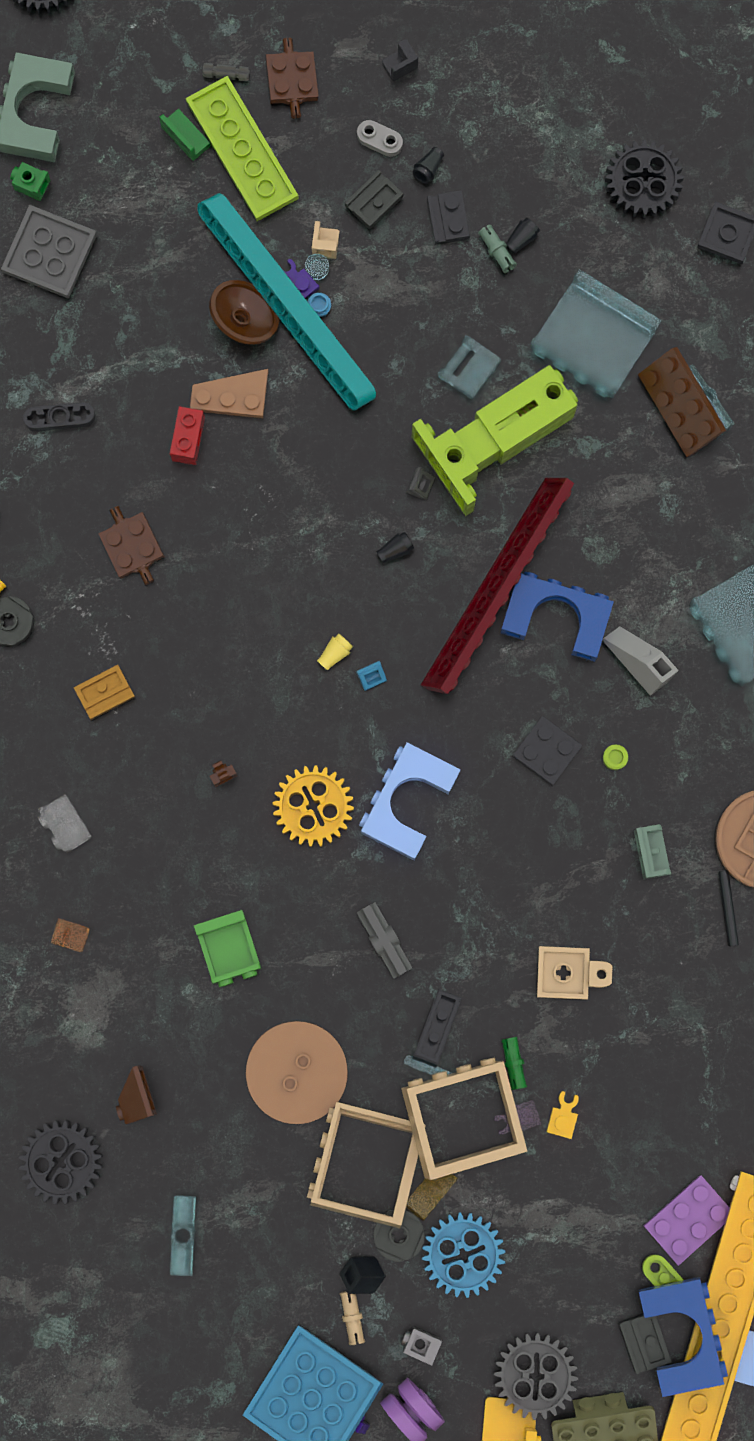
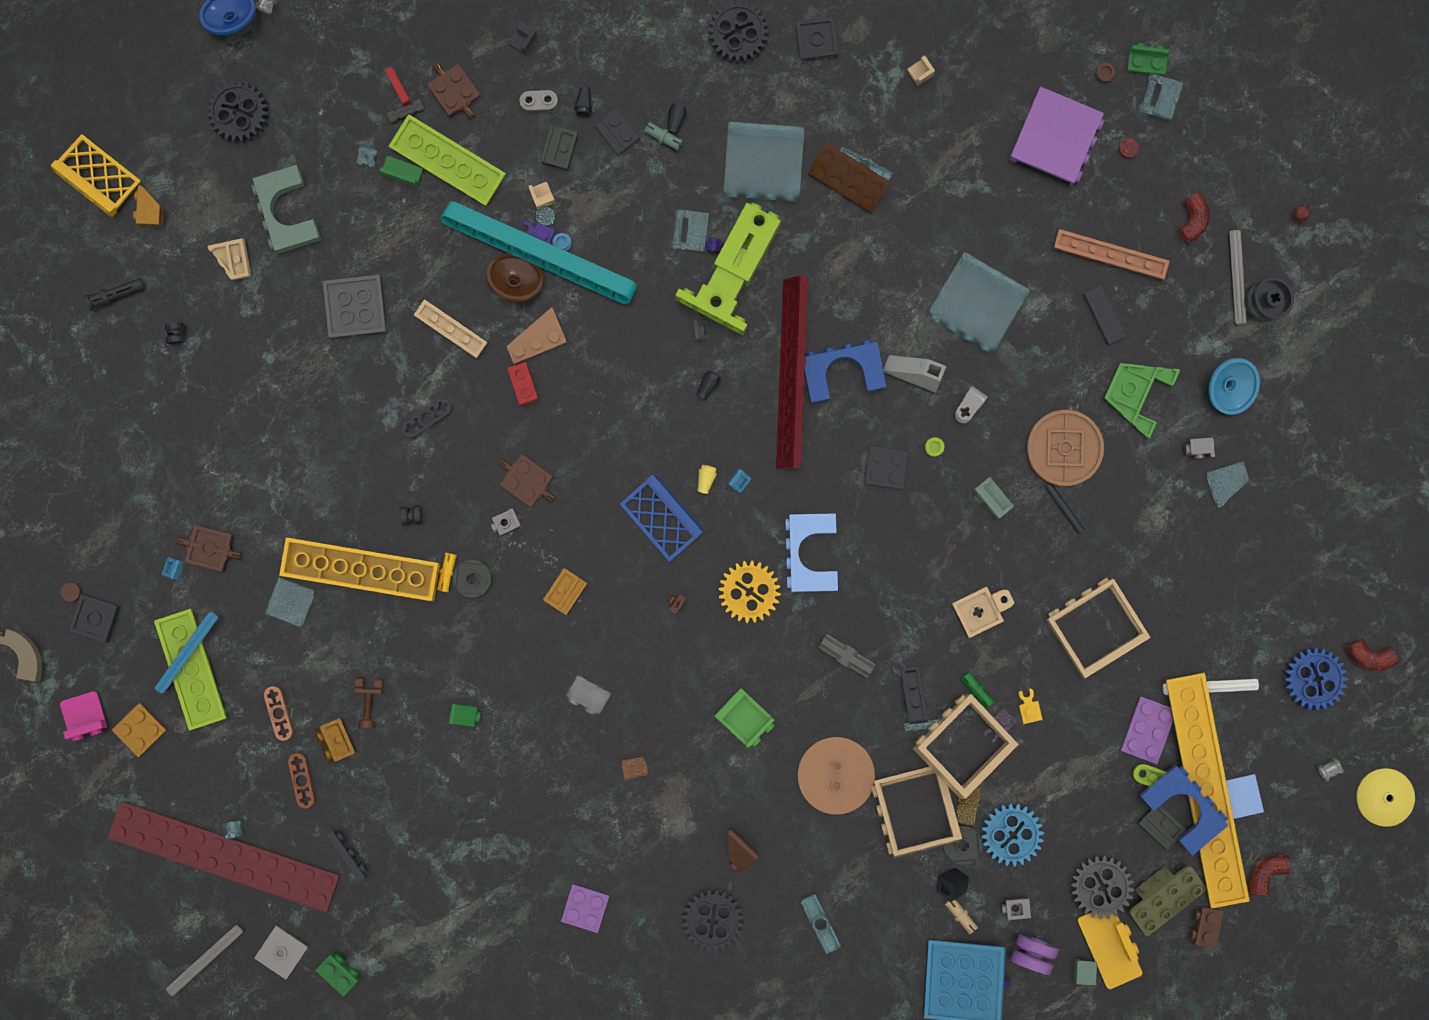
camera: 25 degrees left, 5 degrees up
(33, 187) = (318, 267): green brick -> none
(87, 585) = (513, 522): none -> flat silver brick
(141, 332) = (450, 328): none -> tan plate
(155, 91) = (370, 160): none -> clear light blue plate
(232, 39) = (397, 85): none -> red tile
(282, 666) = (673, 505): none -> blue fence
(487, 395) = (714, 244): none -> dark purple plate
(684, 729) = (971, 402): none -> light grey piece
(701, 1022) = (1116, 653): none -> tan window

